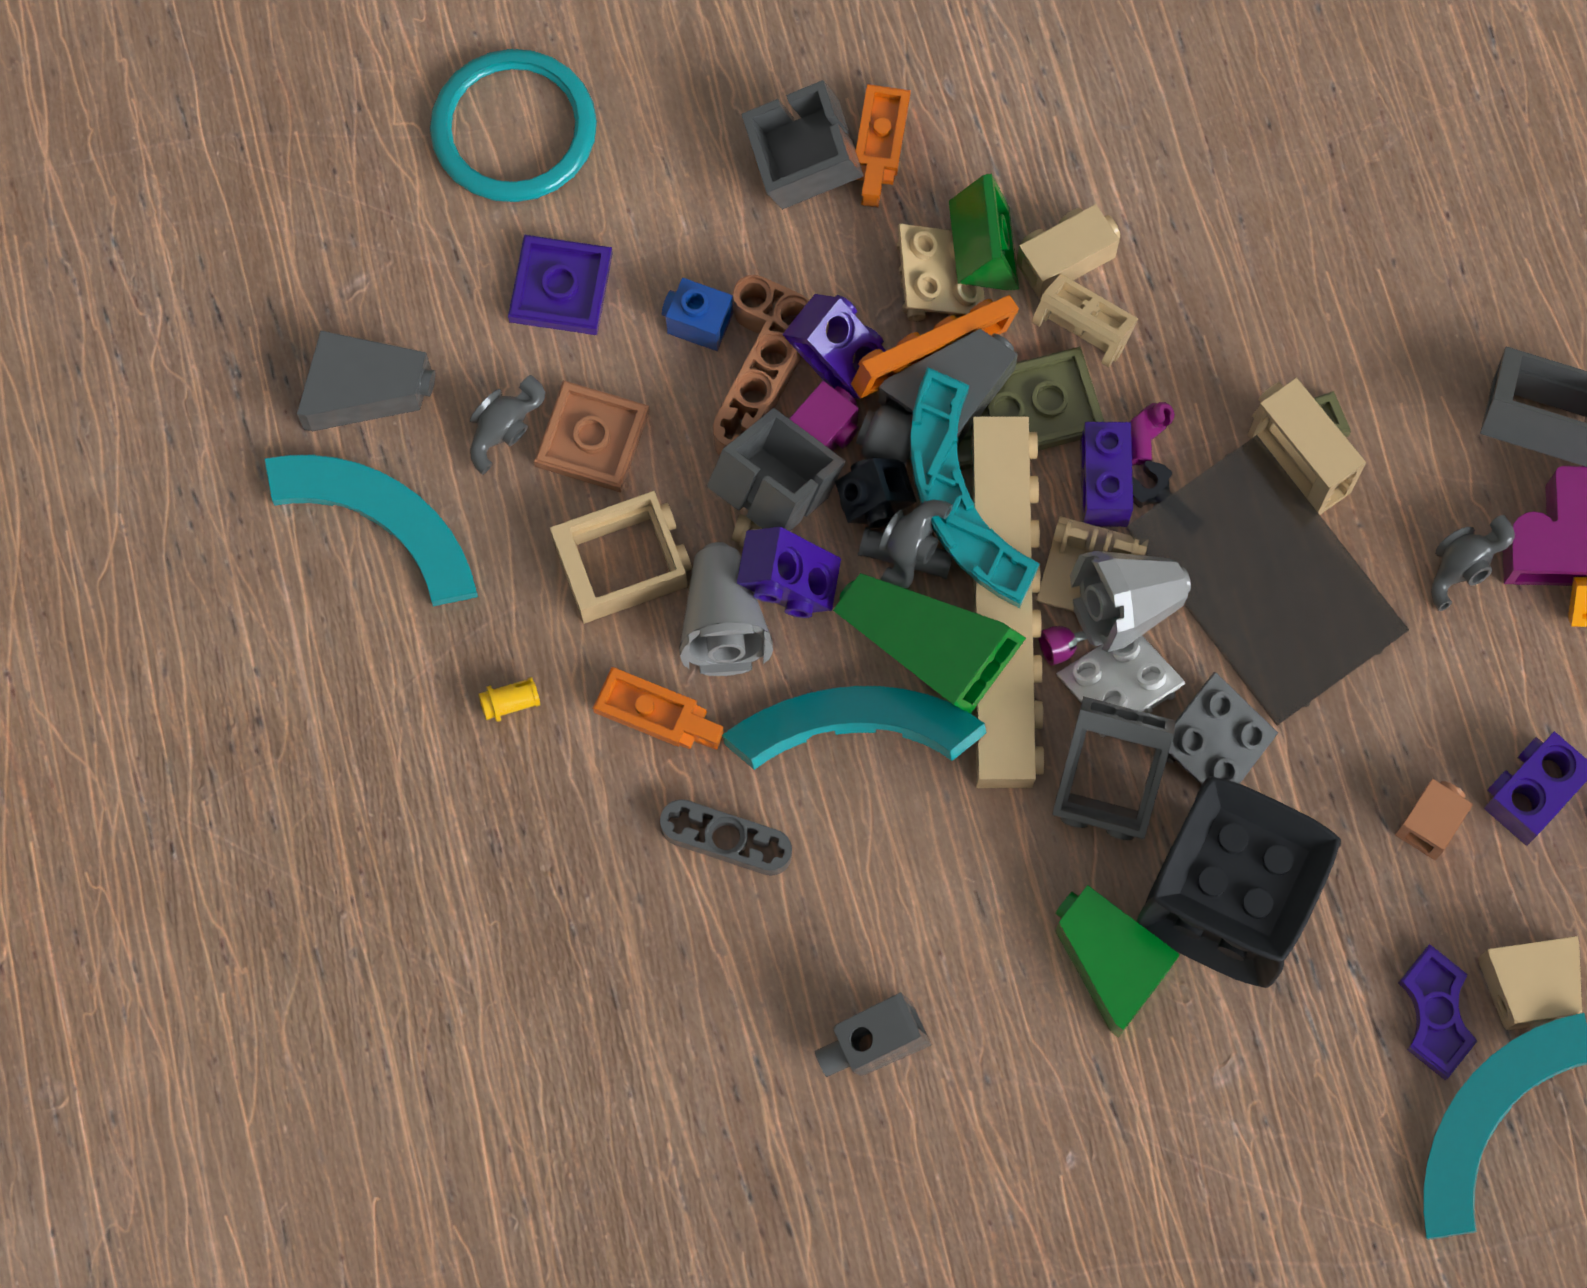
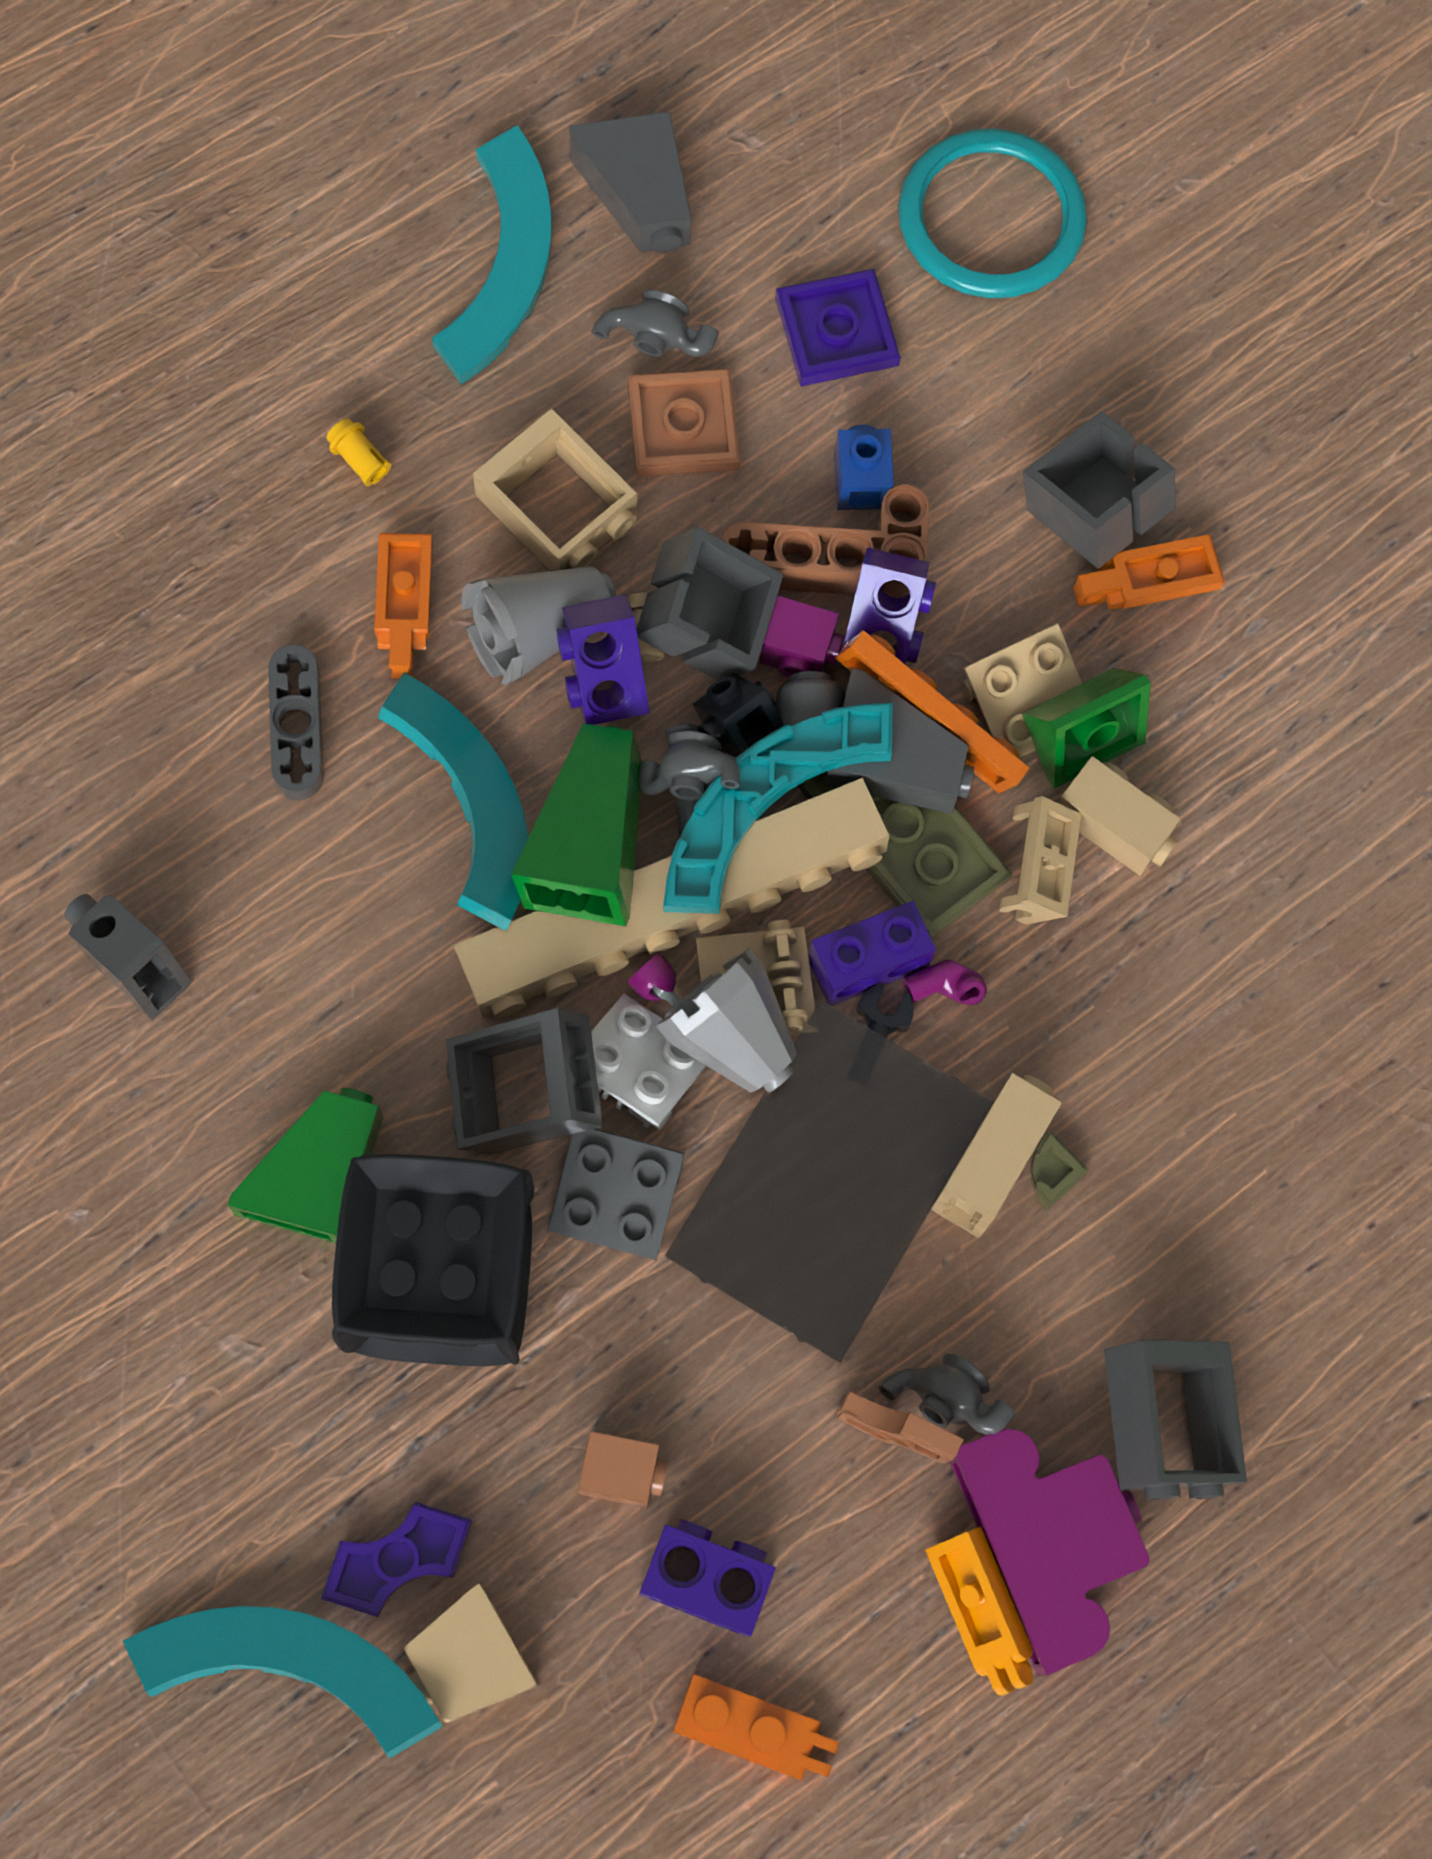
camera: 60 degrees right, 0 degrees up
(1484, 602) = (899, 1428): none -> nougat tile

